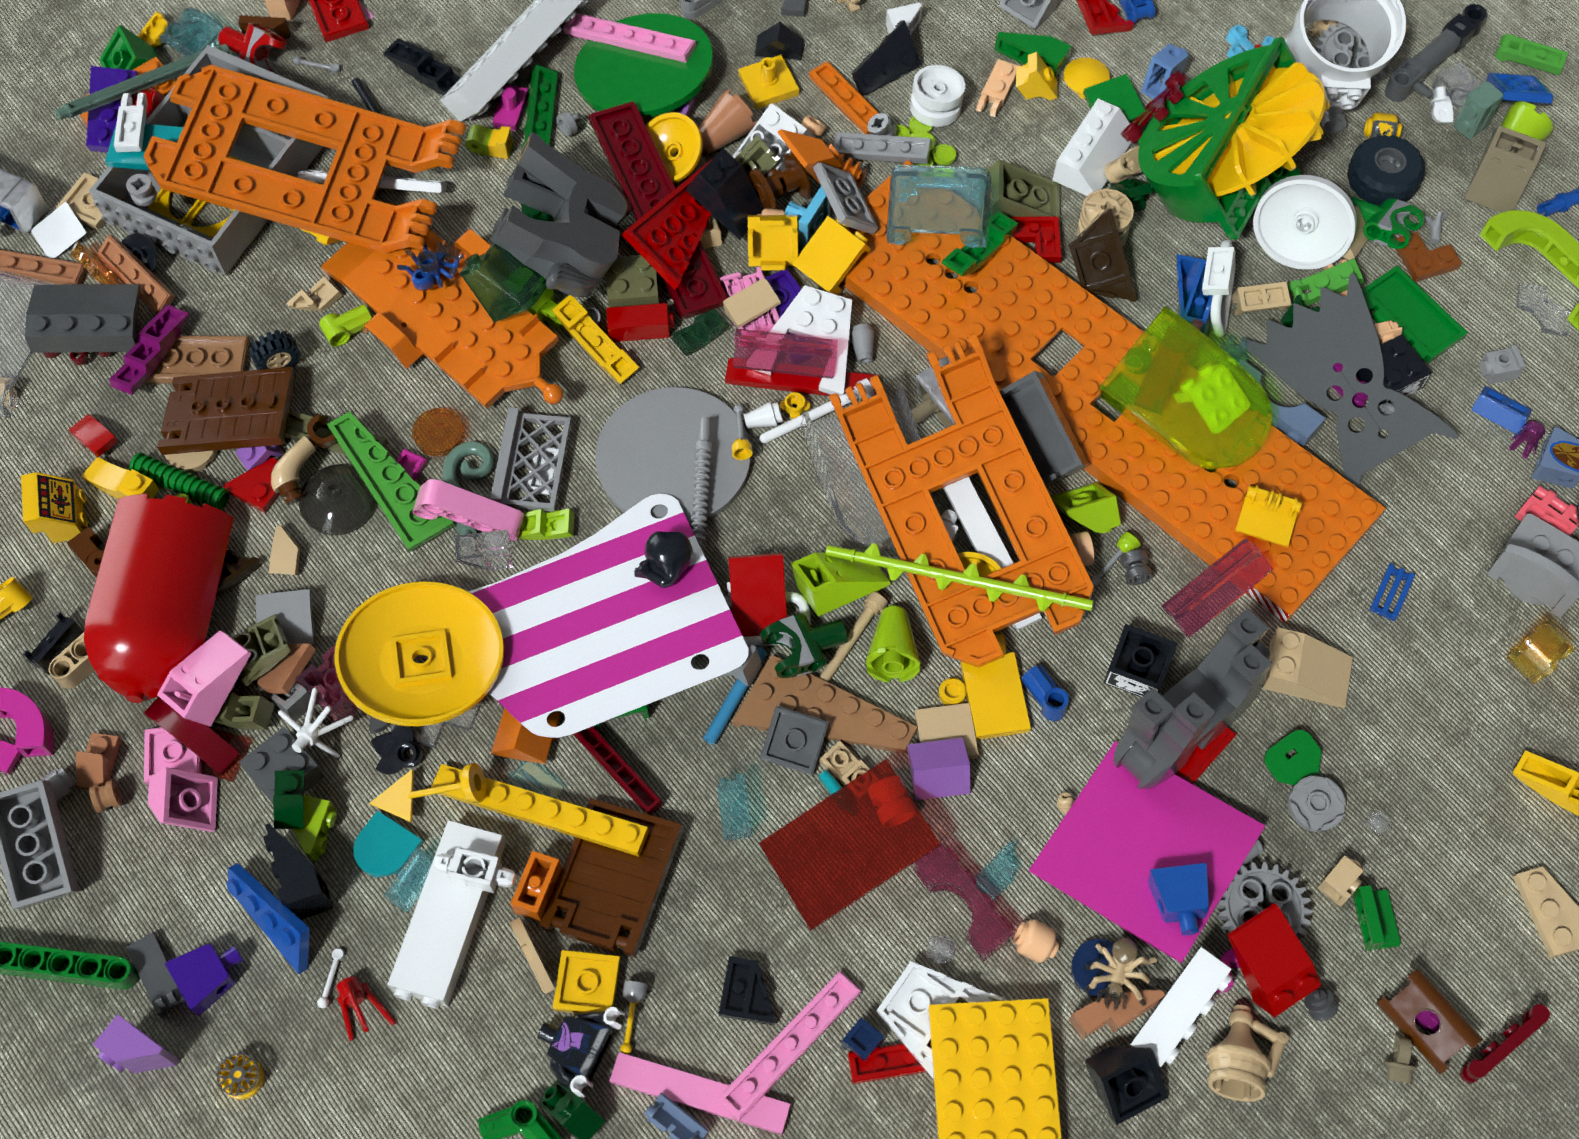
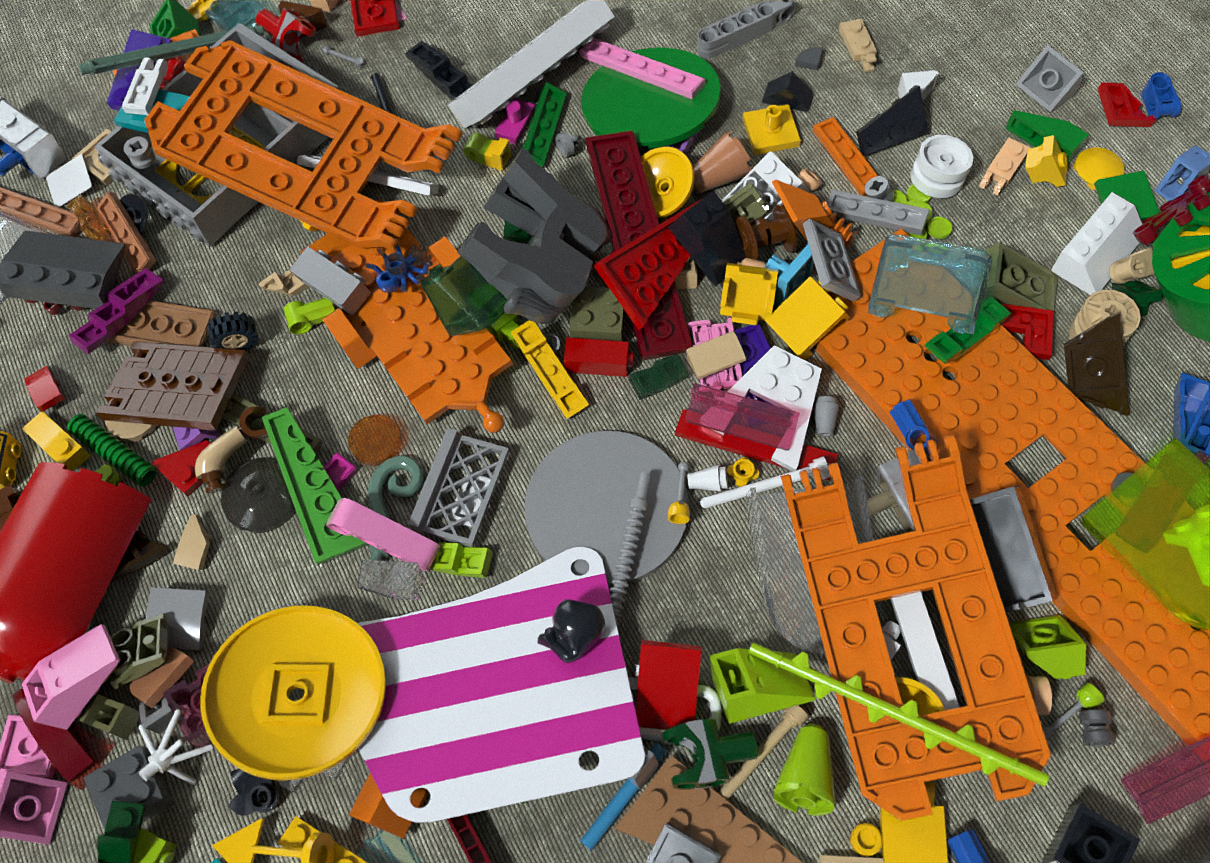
camera: 15 degrees right, 0 degrees up
(363, 287) = (331, 280): none -> light grey brick
(940, 334) = (911, 424): none -> blue piece

